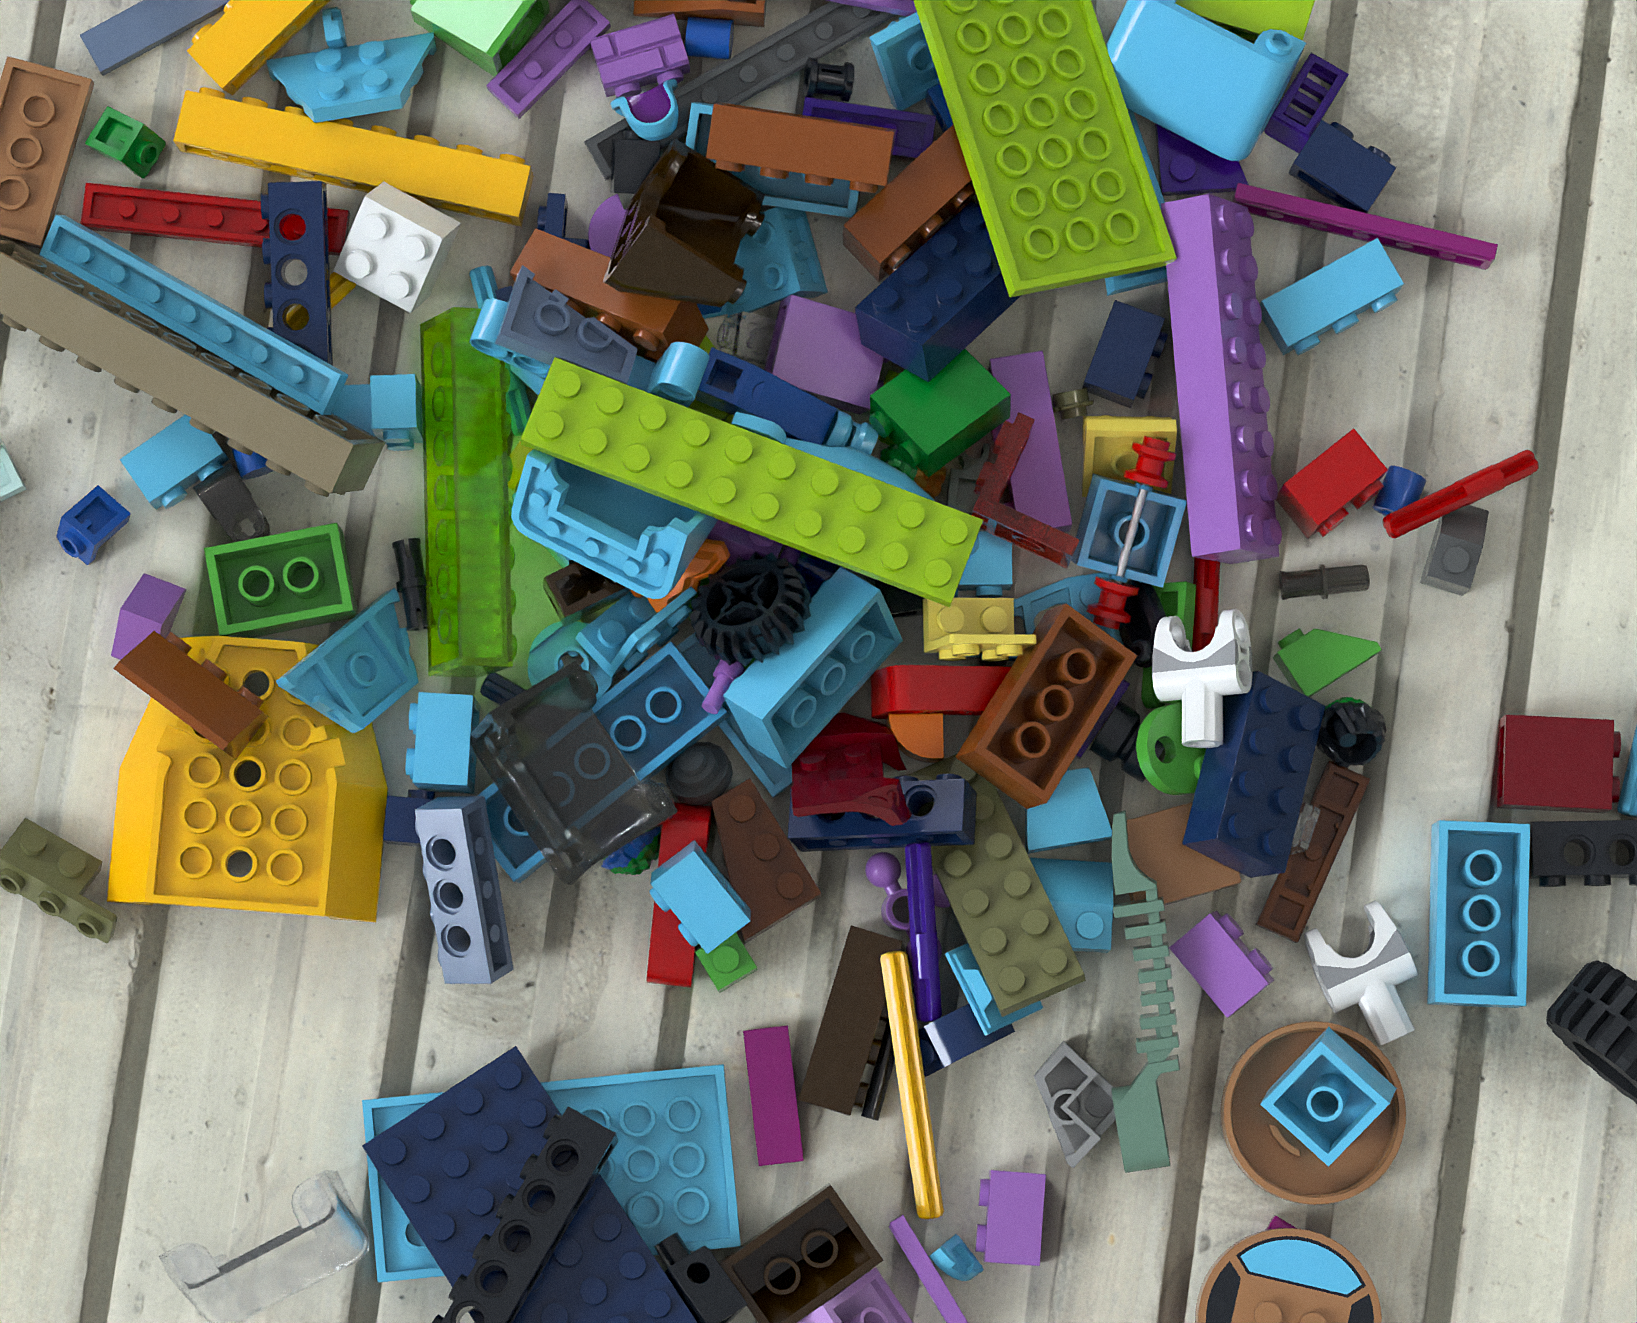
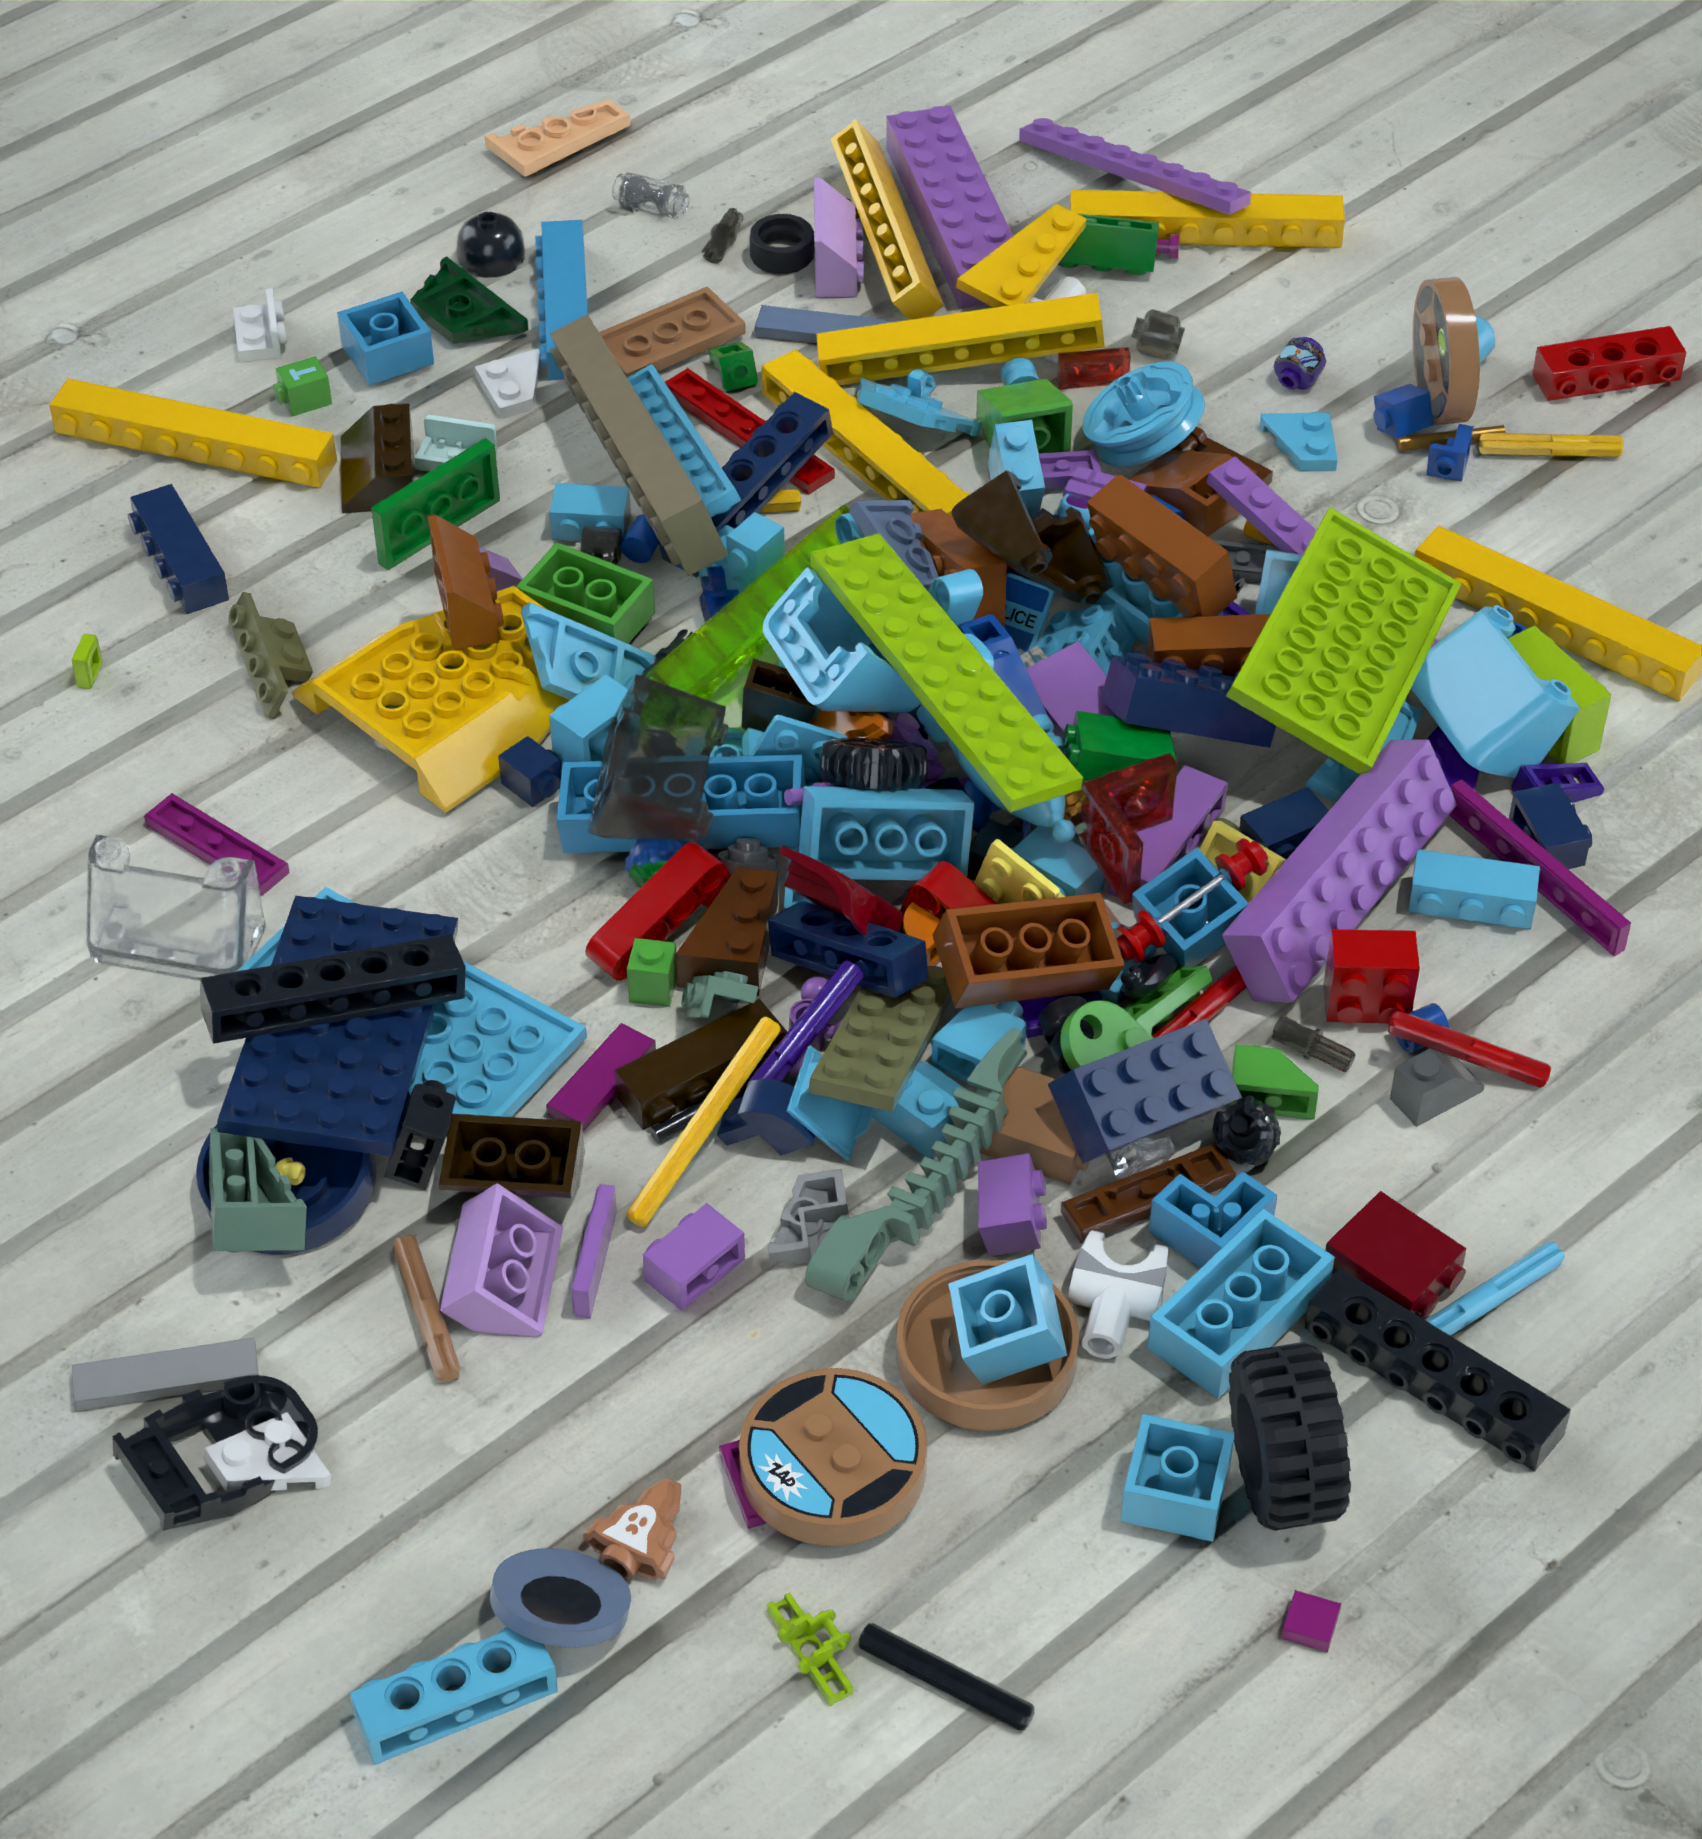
camera: 40 degrees right, 35 degrees down
(31, 592) = (451, 491): none -> green plate
(91, 524) = (504, 510): blue bracket -> none
(208, 1122) = (212, 839): none -> magenta tile
(396, 247) = (840, 477): white brick -> none
(402, 481) = (715, 592): none -> clear blue plate
(472, 867) = (519, 805): sand blue brick -> none
(557, 115) = (1016, 450): none -> medium azure brick
(699, 898) = (669, 893): medium azure brick -> none
(810, 948) = (723, 986): none -> sand green bracket
(956, 1259) = (624, 1253): medium azure tile -> none
(1202, 675) = (1154, 997): white connector -> none
(1407, 855) = (1203, 1224): none -> dark azure brick
(1557, 1122) = (1177, 1477): none -> medium azure brick

